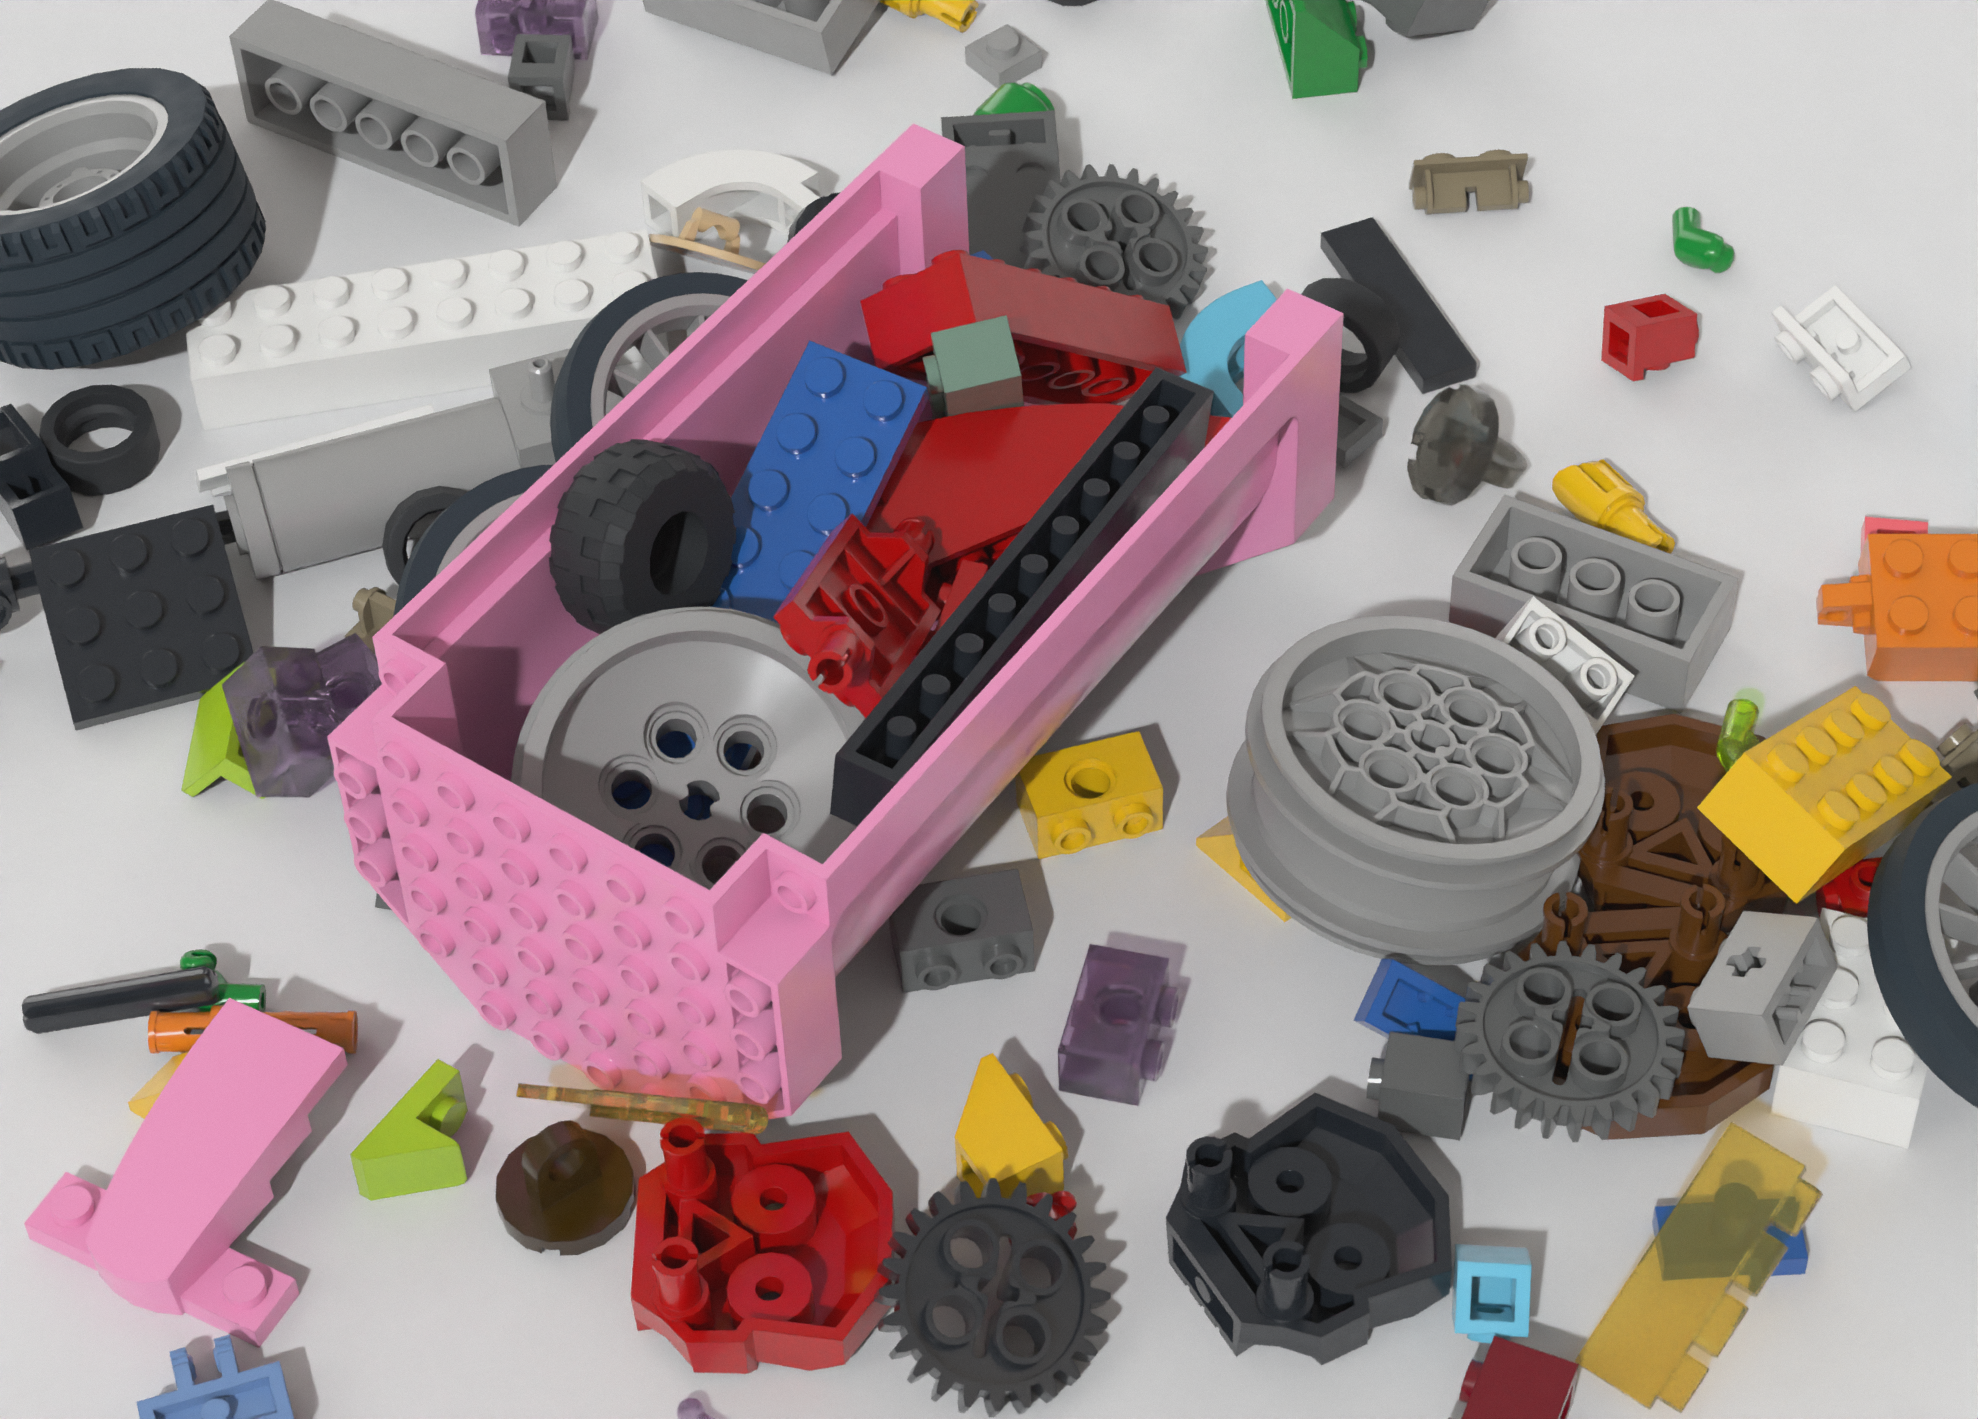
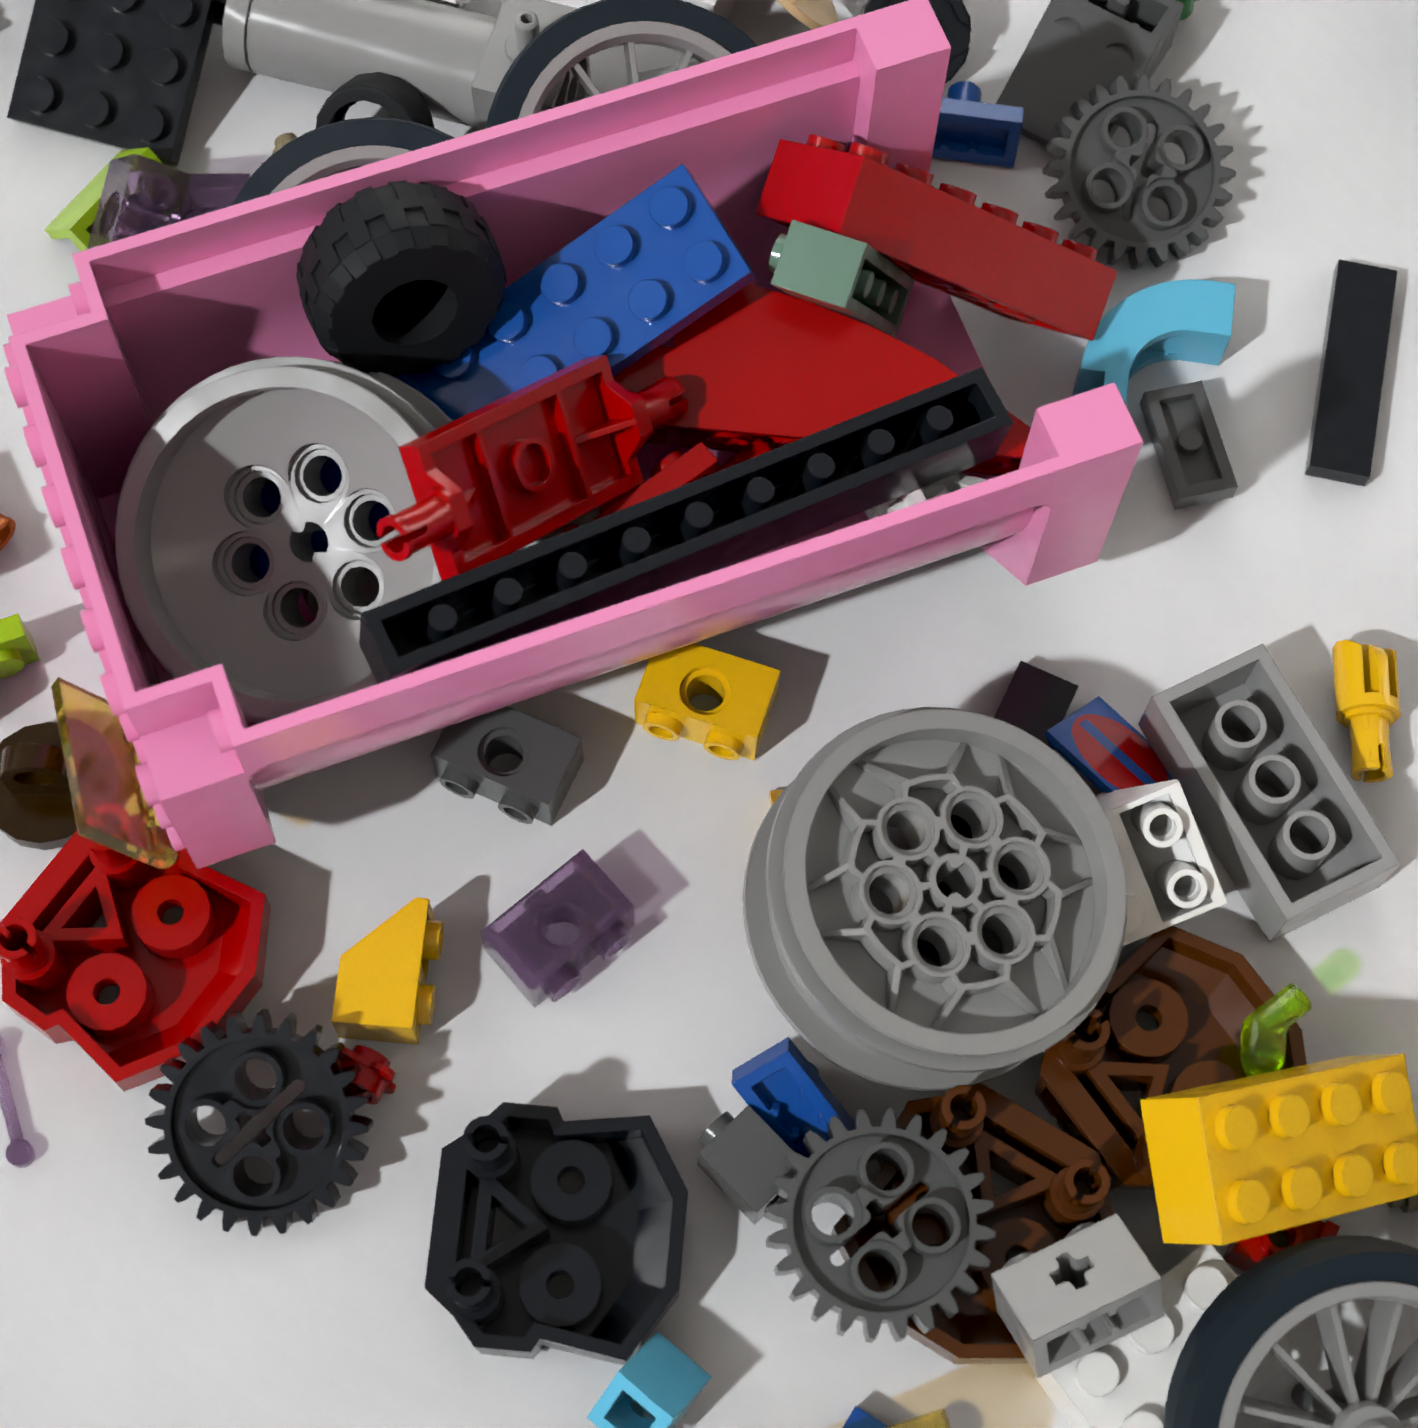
camera: 30 degrees right, 20 degrees up
(1368, 320) = (1260, 382): black tyre -> none
(1461, 447) = (1276, 560): clear smoke tile -> none

